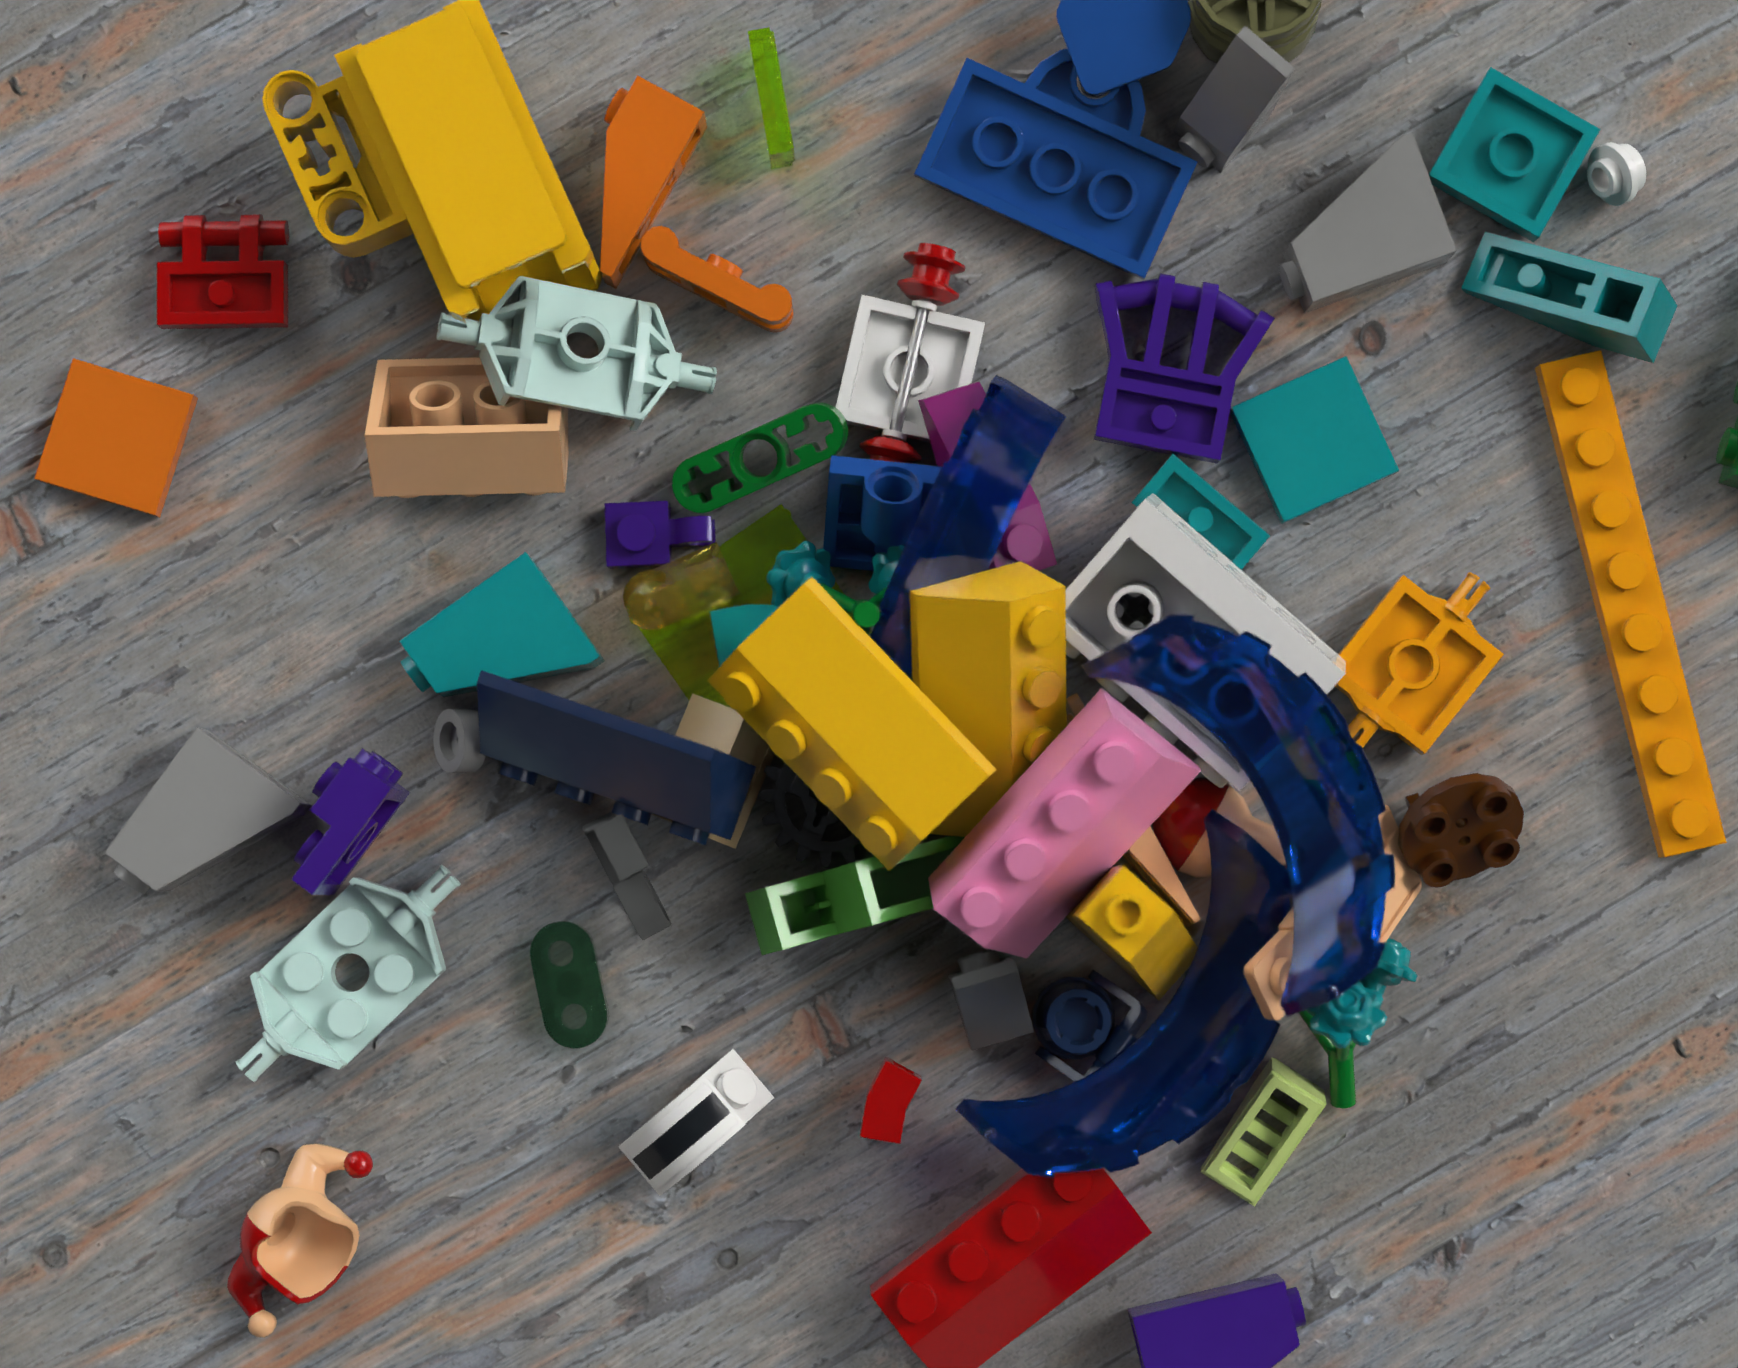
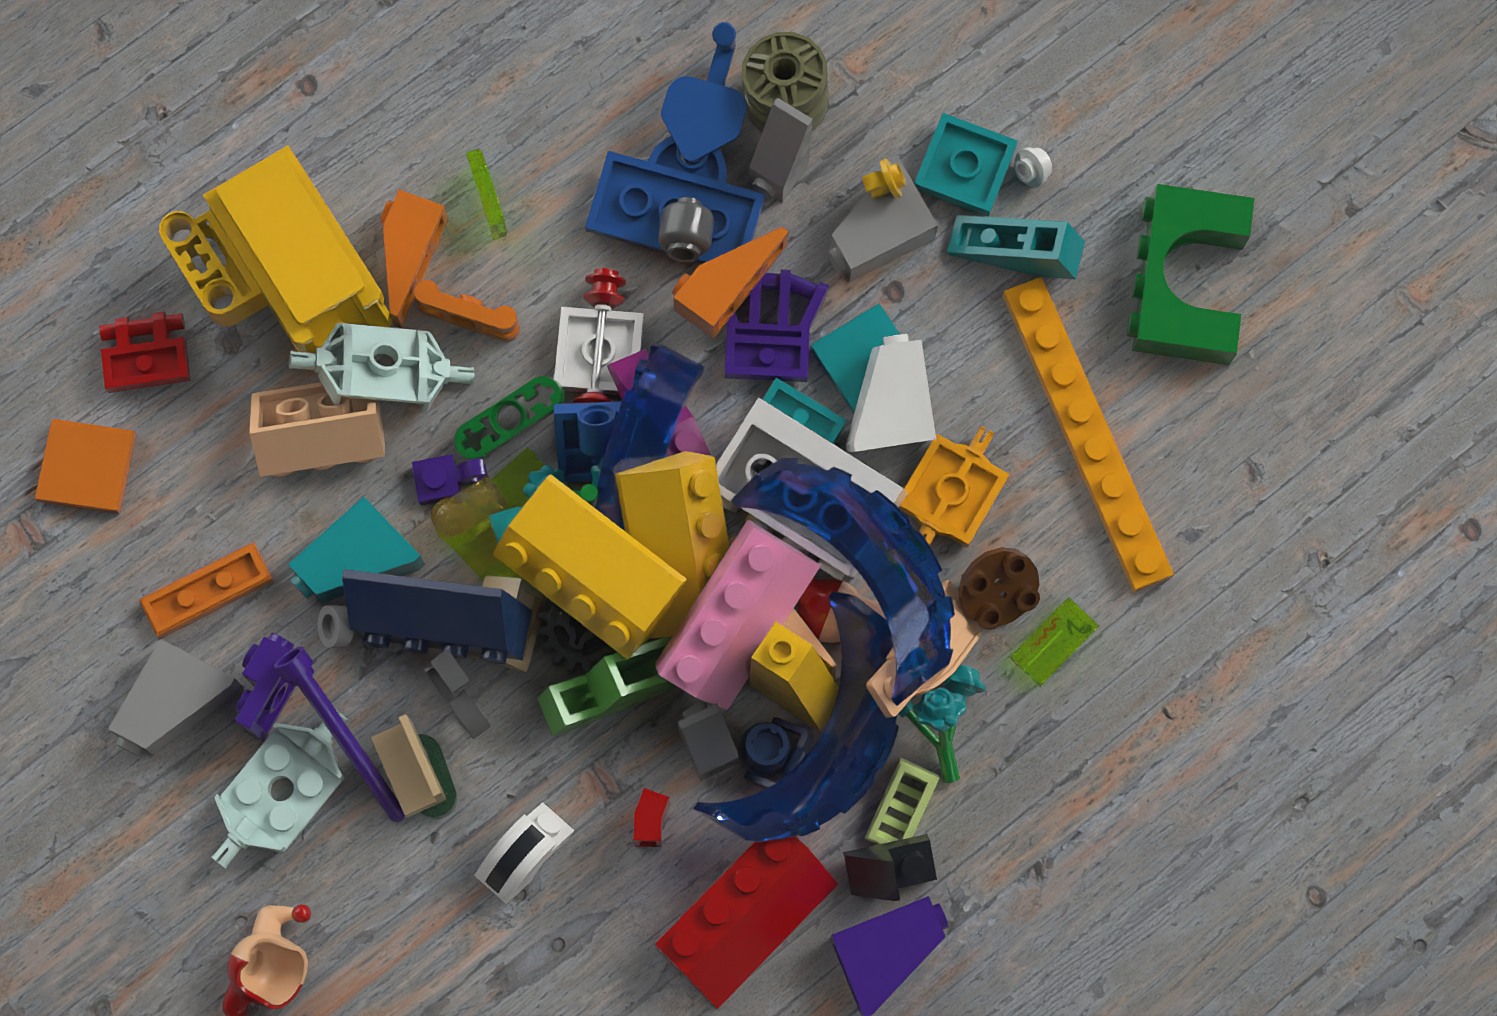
camera: 10 degrees left, 10 degrees down
(274, 654) = (206, 590): none -> orange tile
(391, 816) = (297, 669): none -> dark purple piece
(541, 975) = (408, 767): none -> tan panel
(1069, 204) = (686, 229): none -> dark grey head
(1114, 297) = (723, 283): none -> orange slope
(1226, 1221) = (885, 867): none -> black slope
(1345, 514) = (893, 398): none -> white slope
(1395, 170) = (885, 181): none -> yellow plate
(1529, 917) = (1054, 642): none -> clear neon green tile

